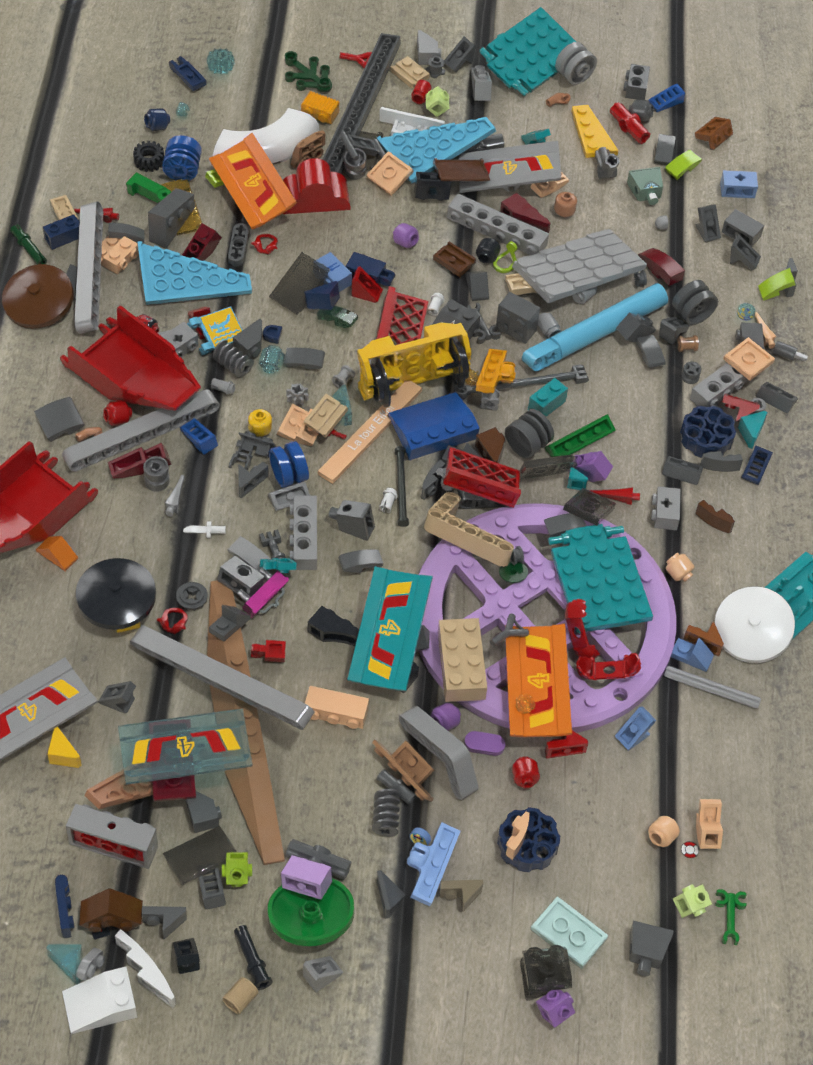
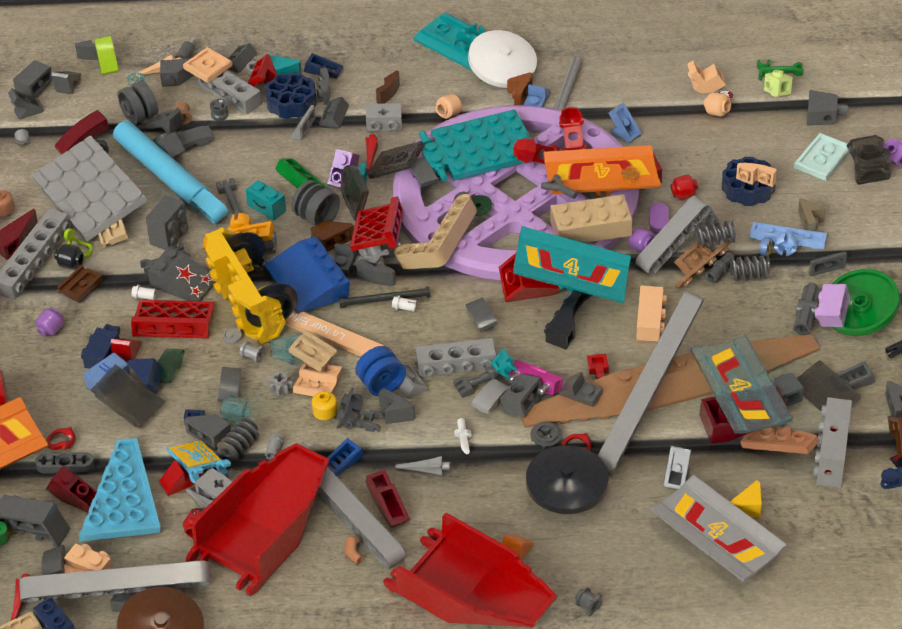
camera: 90 degrees left, 10 degrees down
(59, 418) = (336, 579): dark grey slope -> none
(117, 413) = (325, 526): red head -> none
(156, 473) = (405, 477): flat silver wheel -> none
(237, 869) = (836, 355): lime brick -> none
(354, 518) = (436, 324): dark grey torso -> none
(426, 775) = (715, 233): none -> flat silver piece
(478, 285) = (112, 263): dark grey slope -> none
(664, 441) = (304, 124): none -> light grey slope

